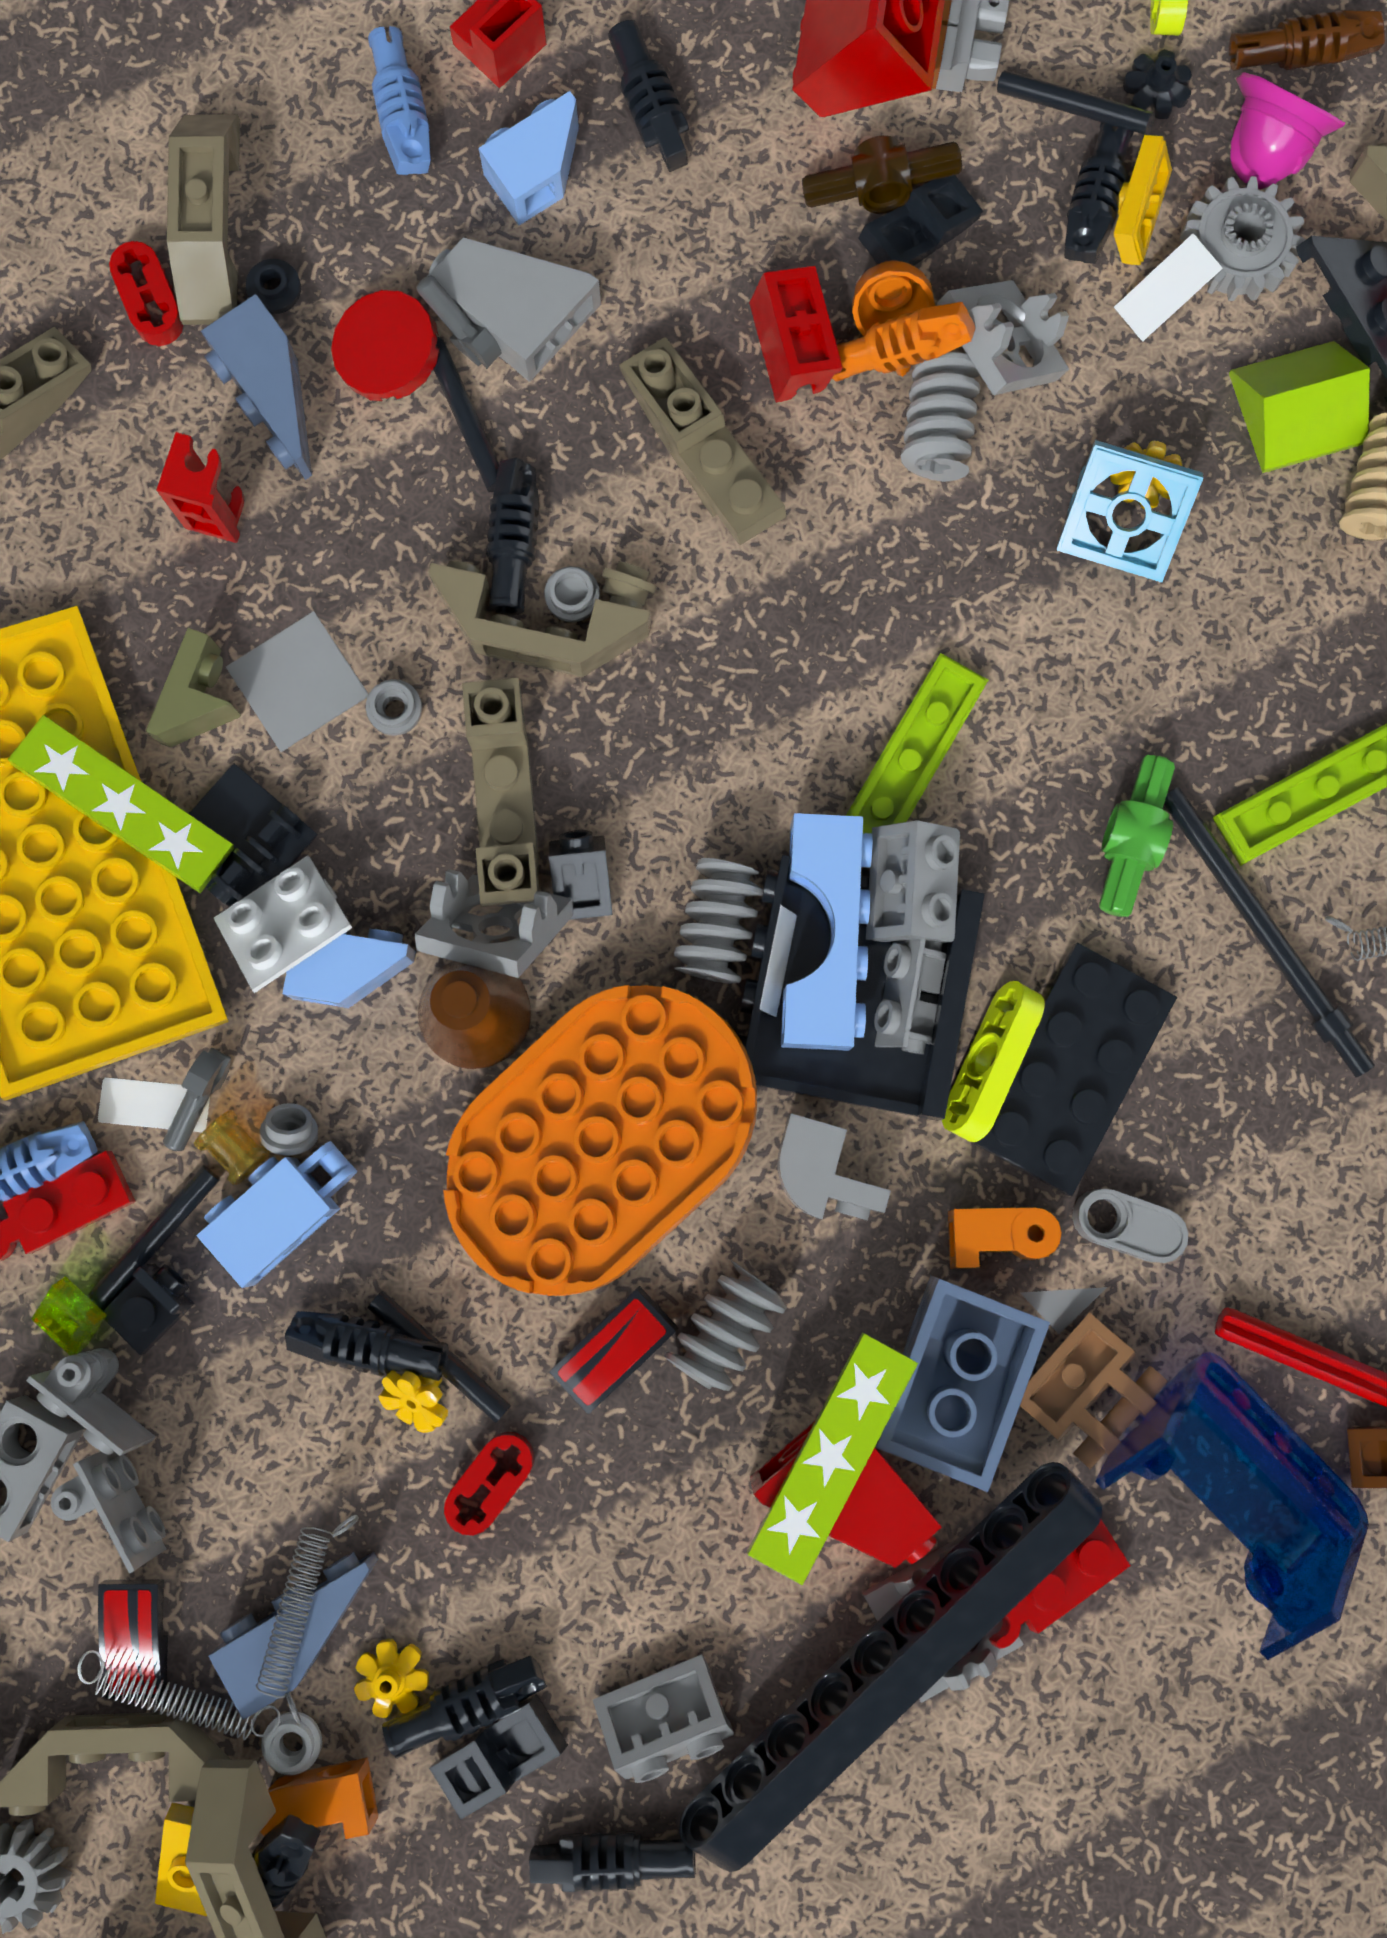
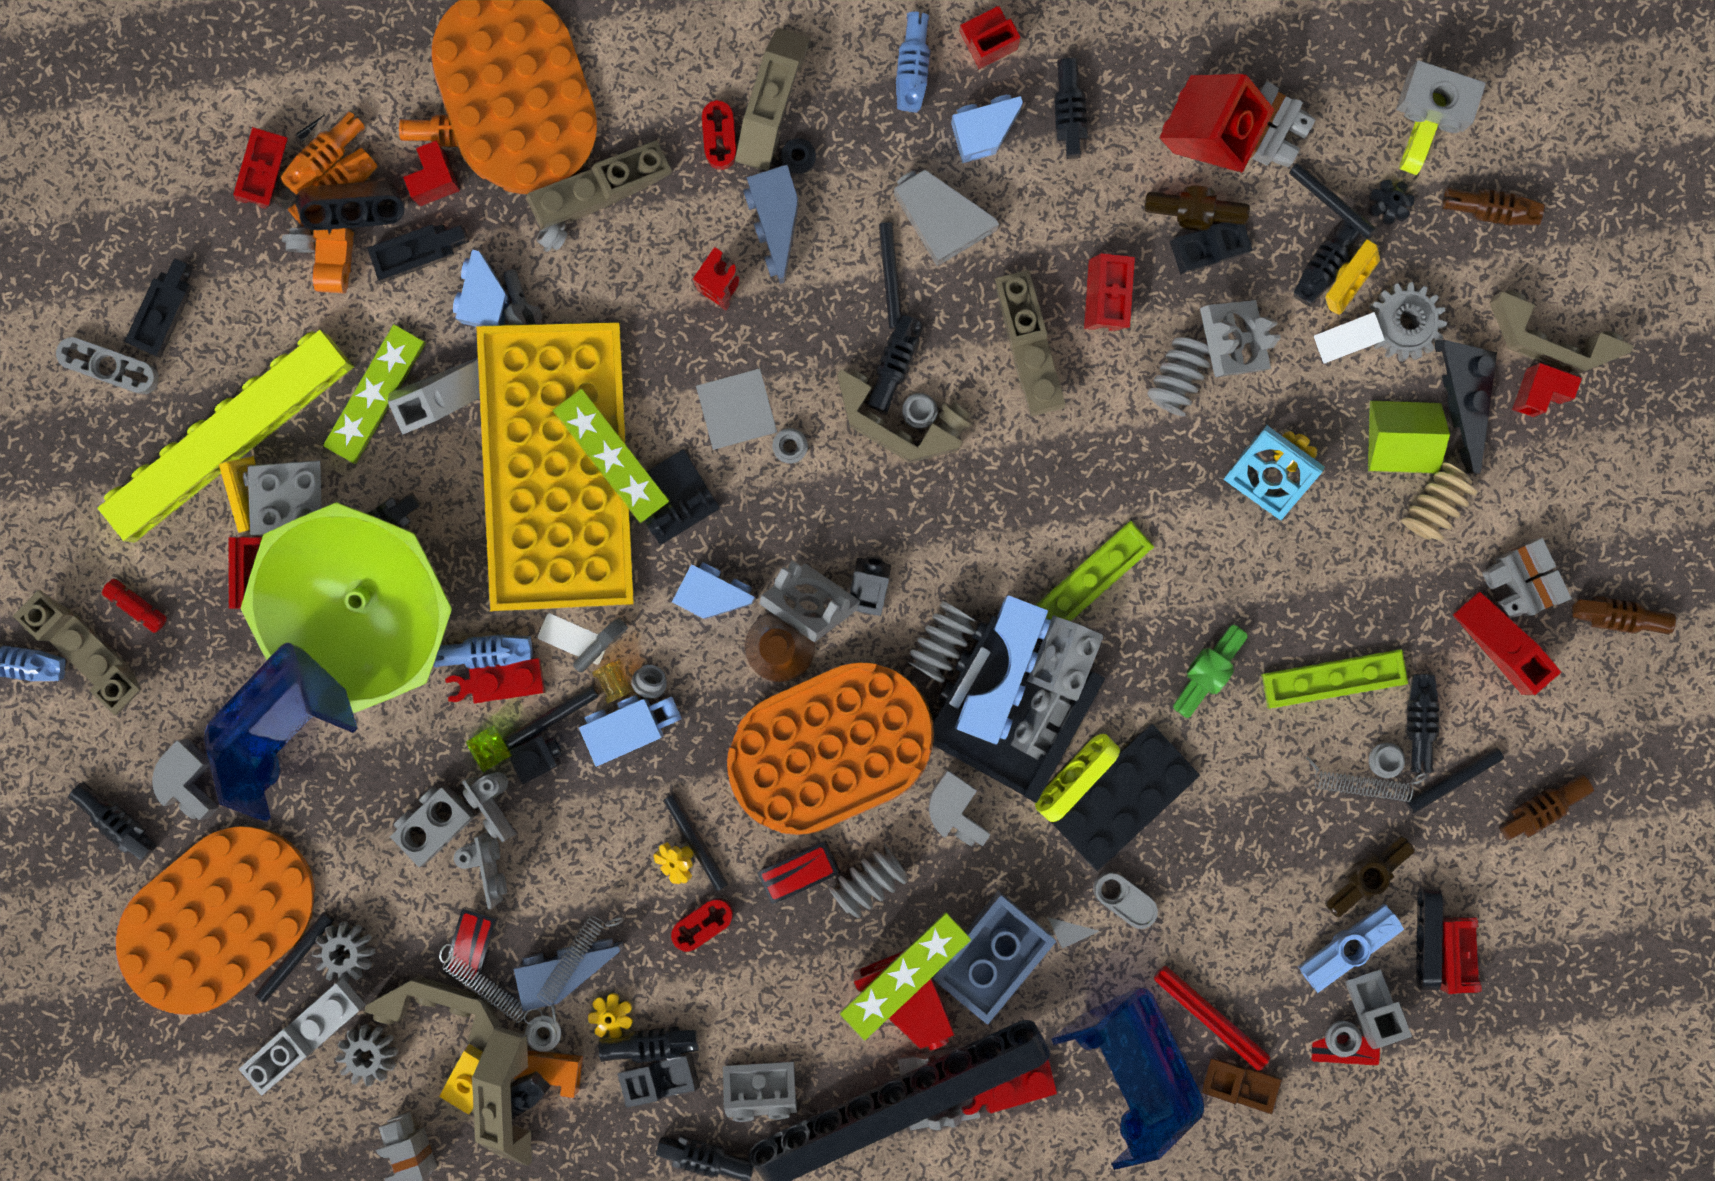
camera: 20 degrees right, 5 degrees up
(183, 706) = (664, 405): olive slope -> none
(282, 923) = (684, 559): white hinge -> none
(363, 1345) = (654, 821): black hinge -> none
(385, 345) = (855, 218): red tile -> none
(468, 337) = (905, 224): dark grey bar -> none
(502, 791) = (838, 523): dark tan slope -> none
(889, 292) = (1176, 299): orange piece -> none
(907, 340) = (1173, 325): orange hinge -> none
(1022, 1231) = (1059, 882): orange leg -> none
(1077, 1377) = (1060, 978): medium nougat plate -> none
(1275, 131) = (1449, 262): dark pink piece -> none
(1330, 1021) = (1286, 819): black bar -> none

